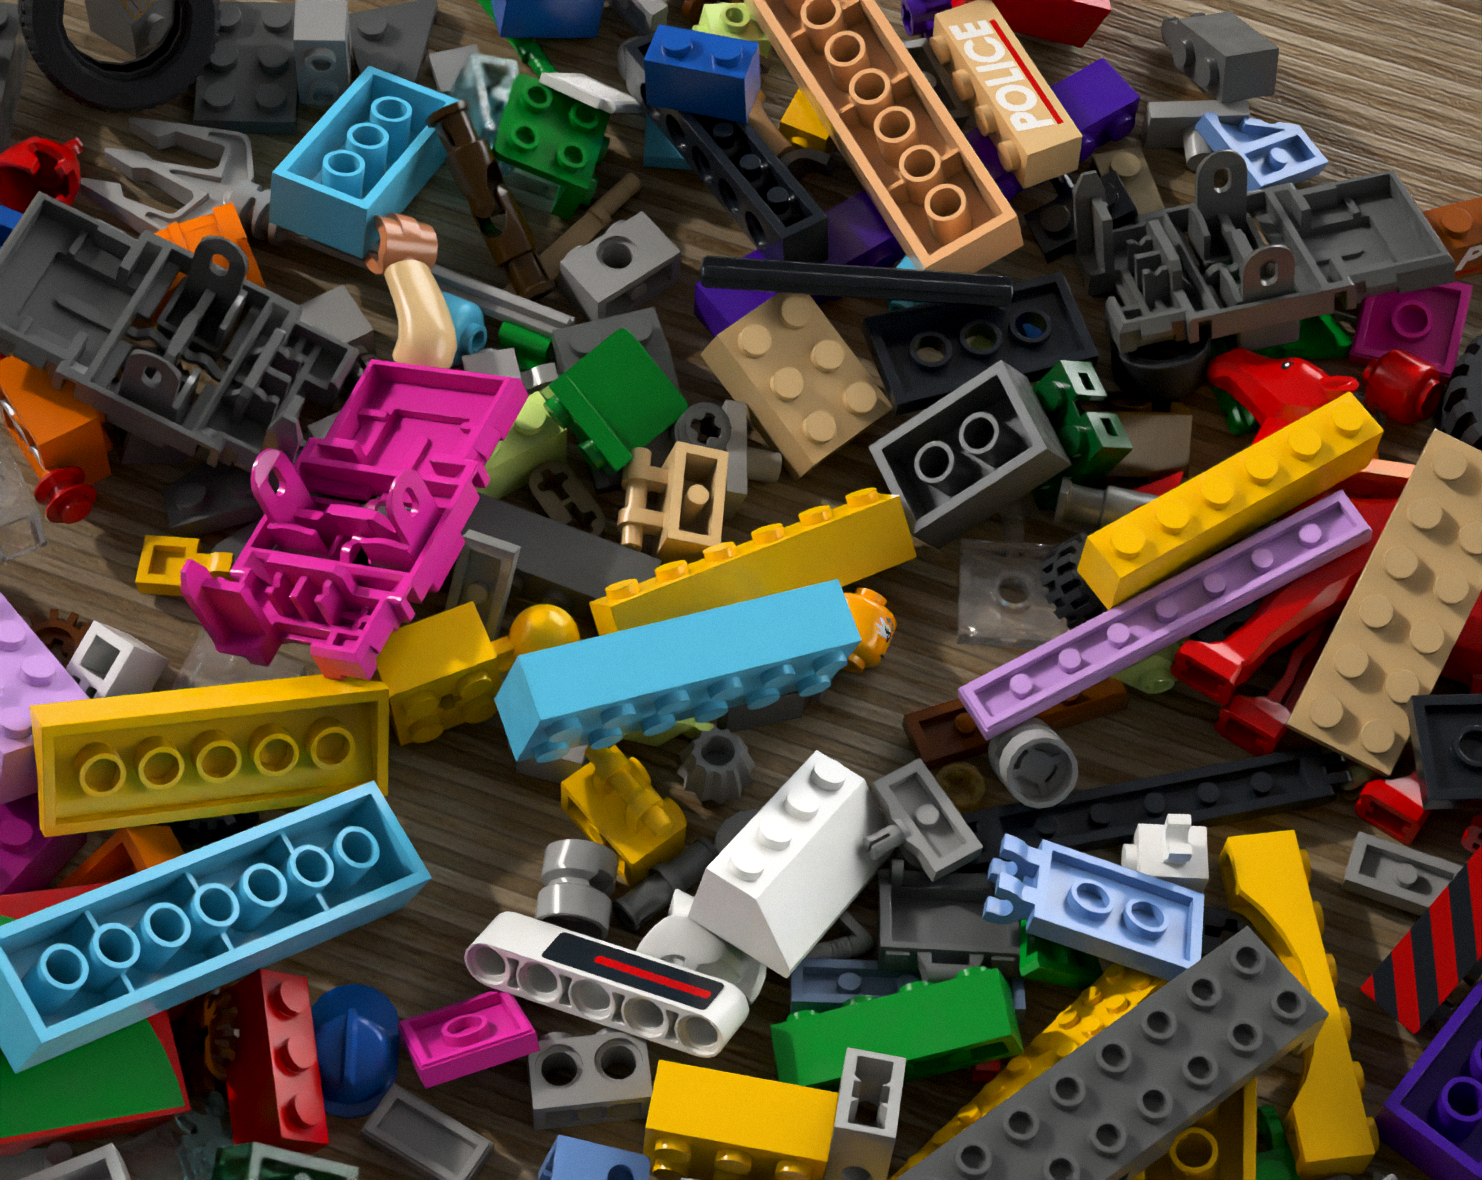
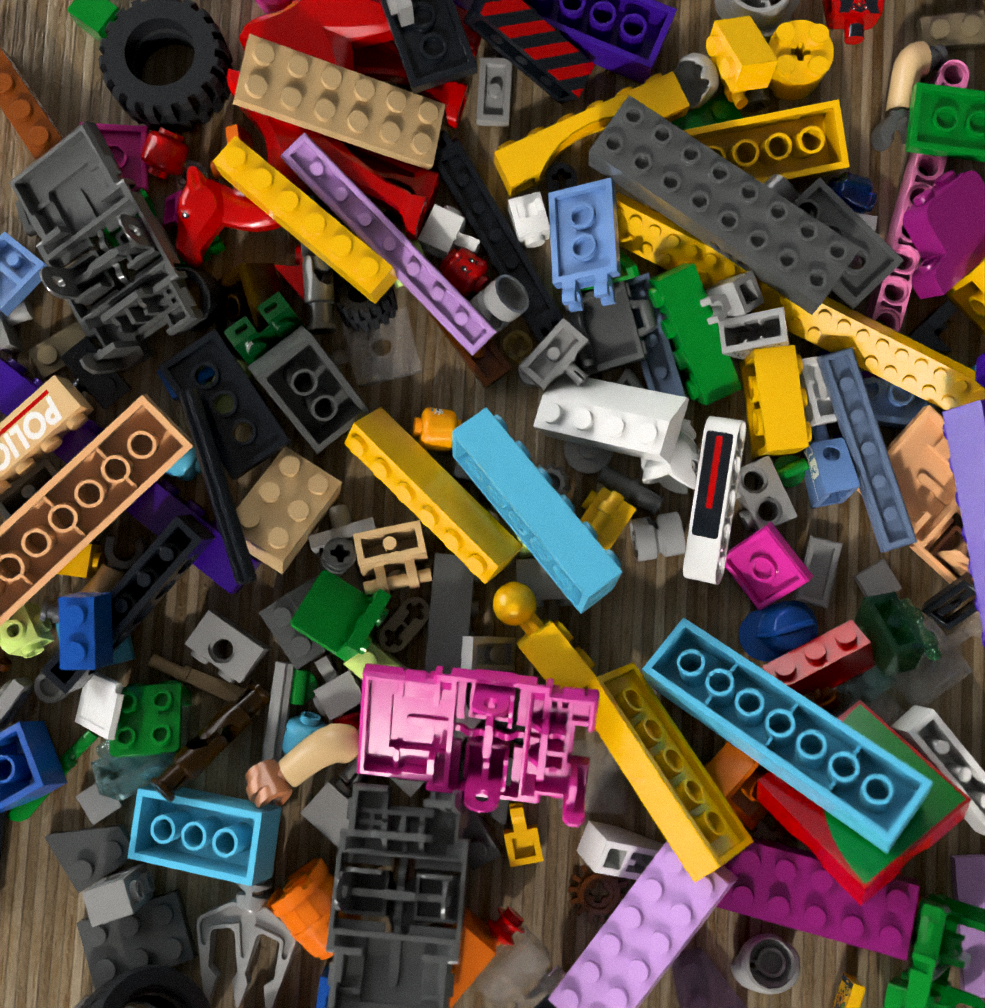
camera: 100 degrees left, 25 degrees up
(617, 1131) = (791, 470): none -> green plate
(937, 1089) = (733, 297): none -> light grey brick
(1105, 740) = (465, 271): none -> red head
(1174, 732) = (445, 232): none -> white brick

